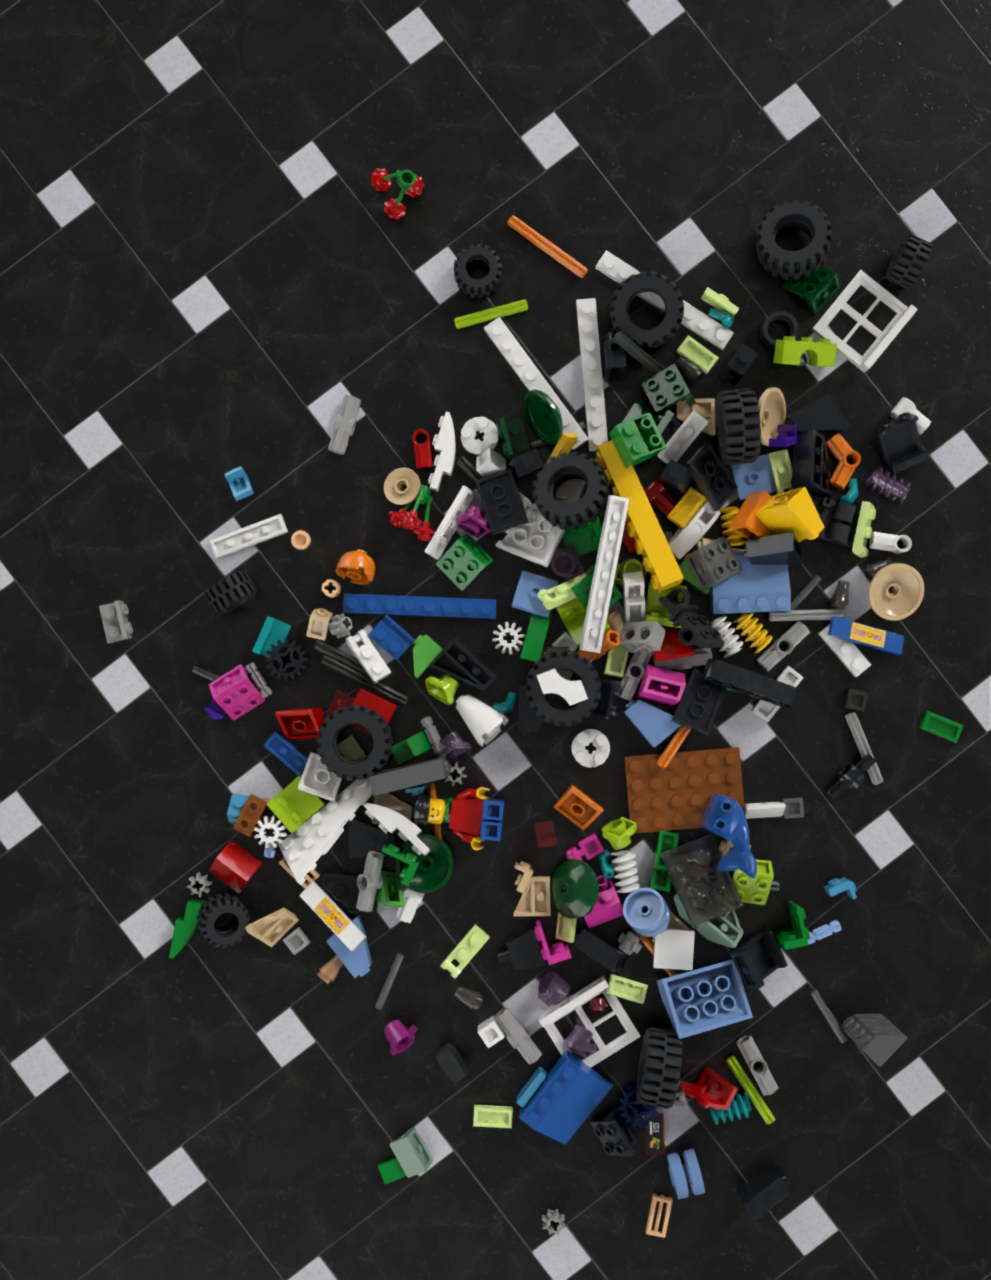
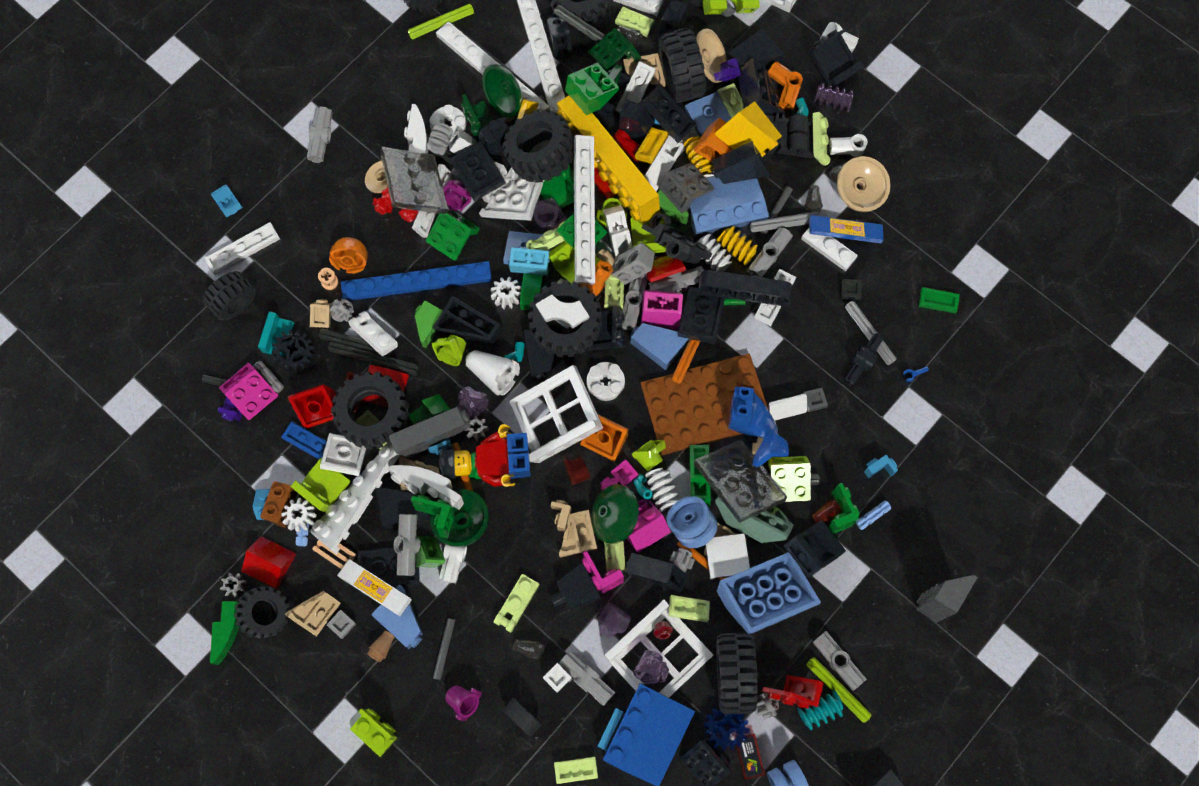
camera: 10 degrees left, 15 degrees down
(116, 622) = (120, 348): light grey bracket -> none
(301, 540) = (293, 243): light nougat tile -> none
(313, 1046) = (374, 733): none -> lime bracket
(391, 637) = (393, 314): blue plate -> none
(422, 451) = (397, 140): red piece -> none
(432, 734) = (446, 394): light grey axle -> none
(434, 507) = (413, 181): none -> clear smoke plate
(468, 459) = (440, 138): none -> light grey gear
(538, 614) = (529, 261): none -> medium azure hinge
(541, 805) = (541, 453): none -> white window
(780, 921) = (827, 511): none -> clear red cone
(828, 1015) = (900, 598): dark grey bar -> none
(898, 798) = (915, 373): none -> blue hand

